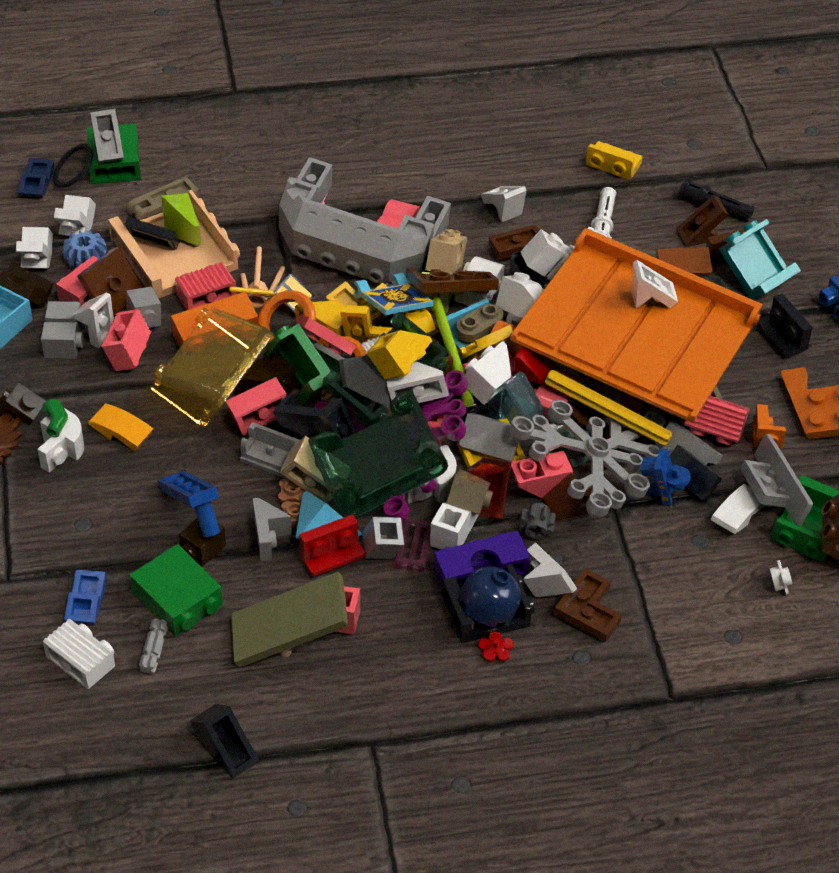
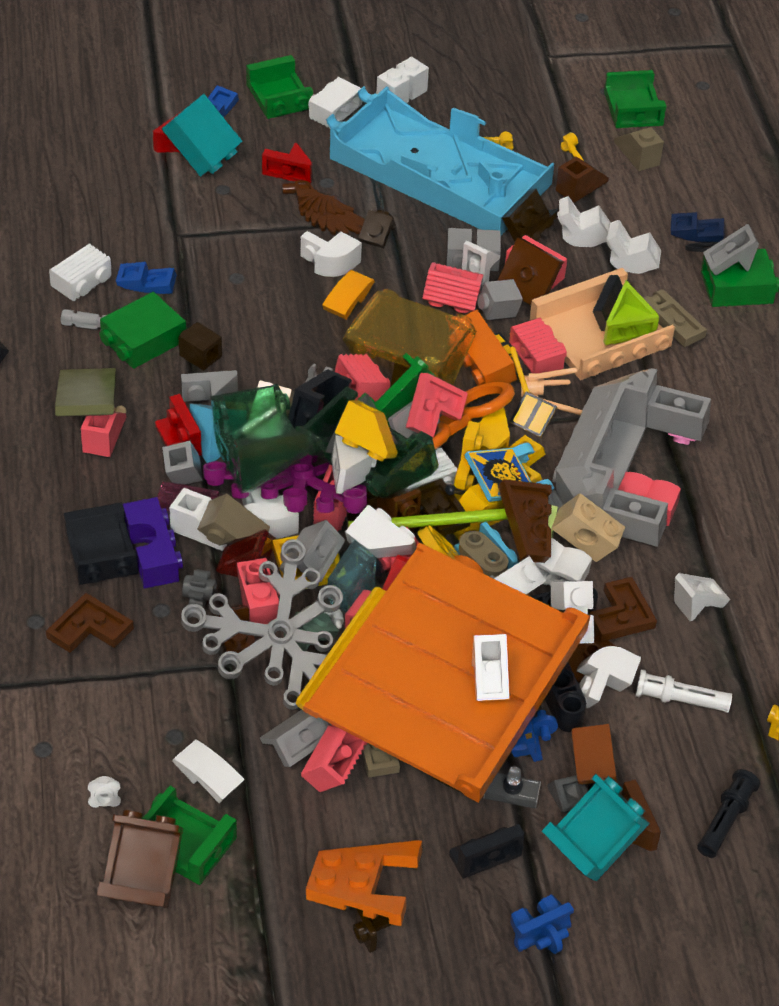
camera: 90 degrees right, 0 degrees up
(58, 414) = (341, 237): green arm -> none
(82, 247) = (586, 260): medium blue gear -> none
(194, 493) = (235, 318): blue piece -> none
(490, 596) = (93, 532): dark blue cylinder -> none
(495, 647) = (53, 554): red plant -> none
(548, 576) = (129, 588): white slope -> none
(667, 476) = (244, 692): blue hips -> none
(702, 222) = (674, 793): reddish brown slope -> none
(703, 478) = (260, 730): black tile -> none
(763, 424) = (324, 804): orange bracket -> none
(775, 481) = (233, 792): light grey bracket -> none

